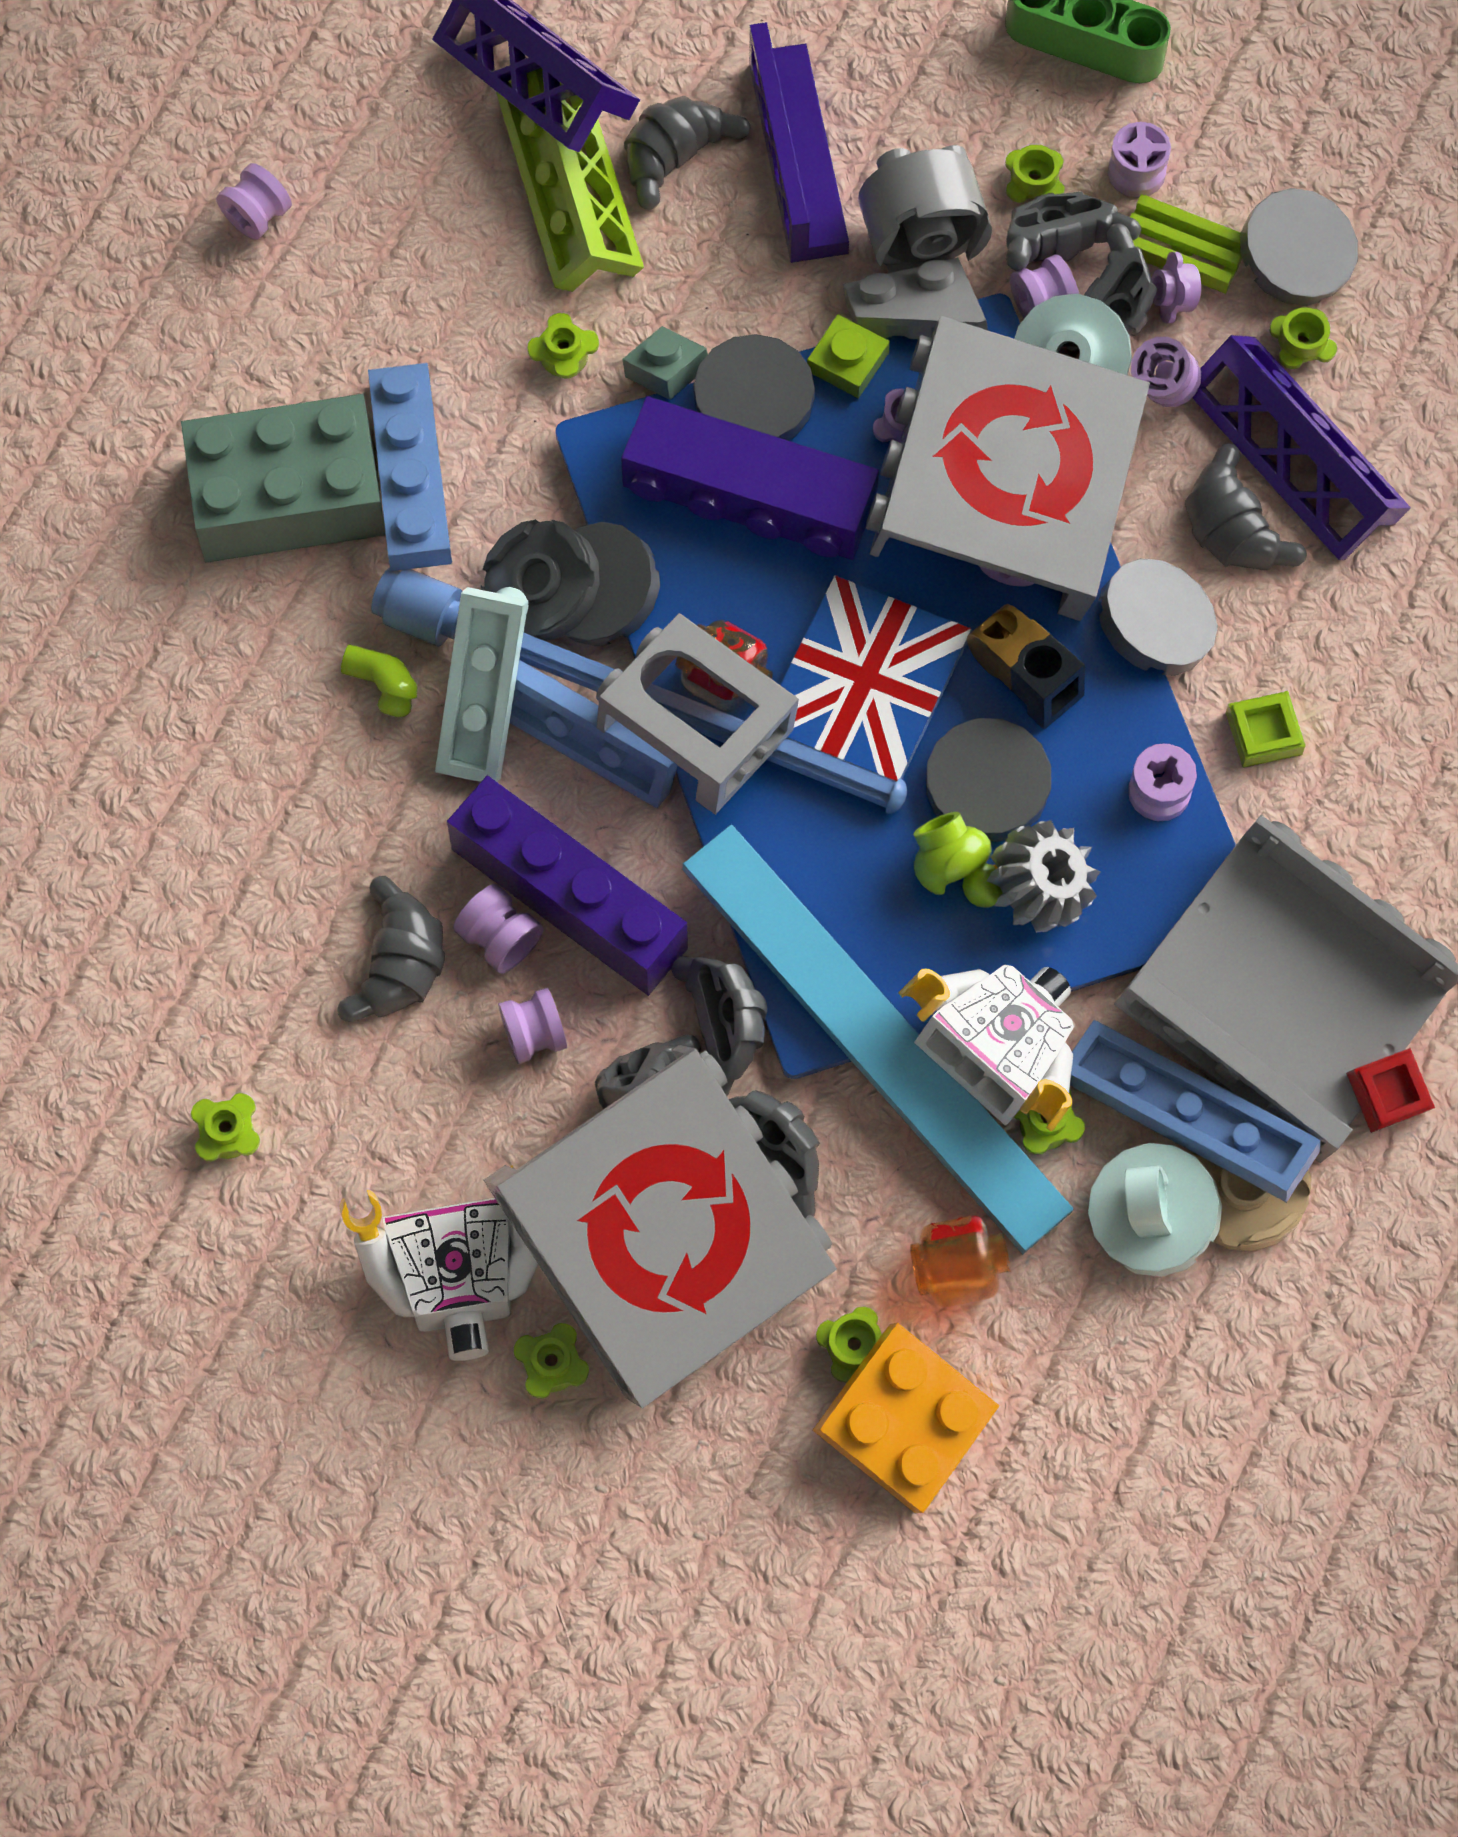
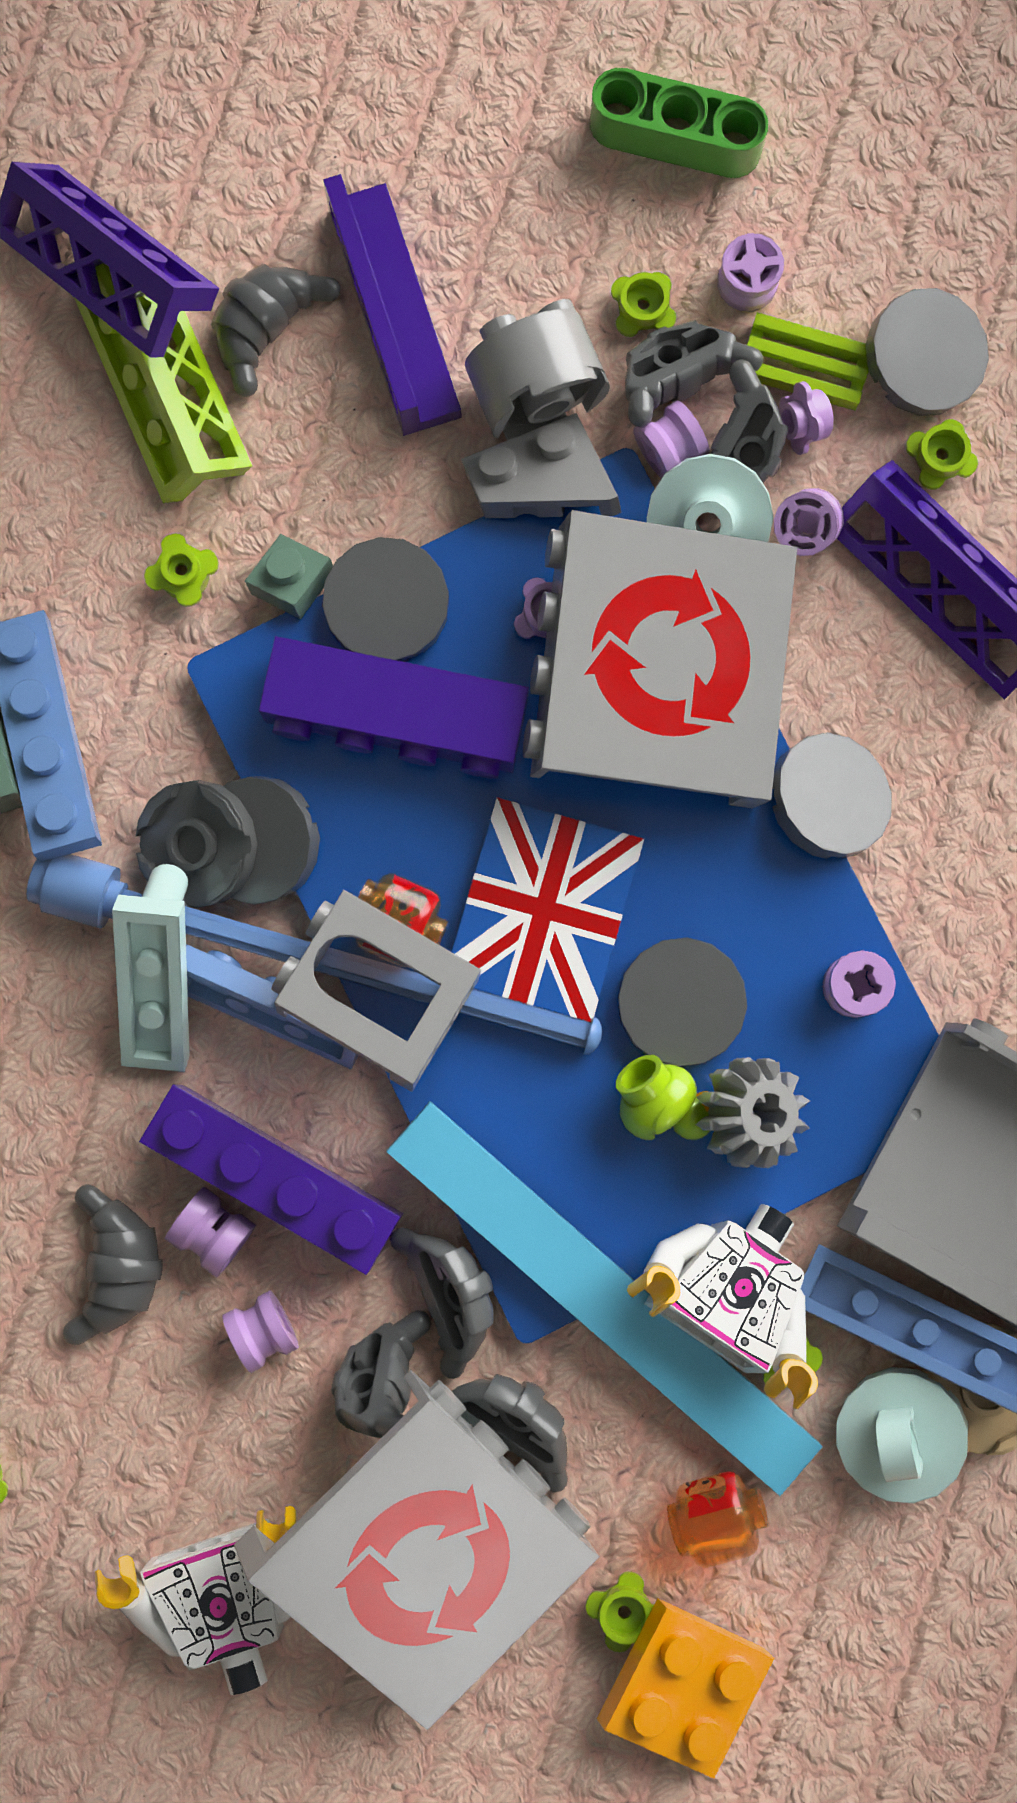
camera: 10 degrees left, 15 degrees up
(388, 674) = (58, 966): lime arm -> none
(544, 1378) = (324, 1693): lime plate -> none
(848, 356) = (477, 545): lime plate -> none
(1029, 663) = (706, 872): leg -> none
(1231, 521) = (890, 669): dark grey piece -> none
(1265, 729) = (951, 896): lime tile -> none

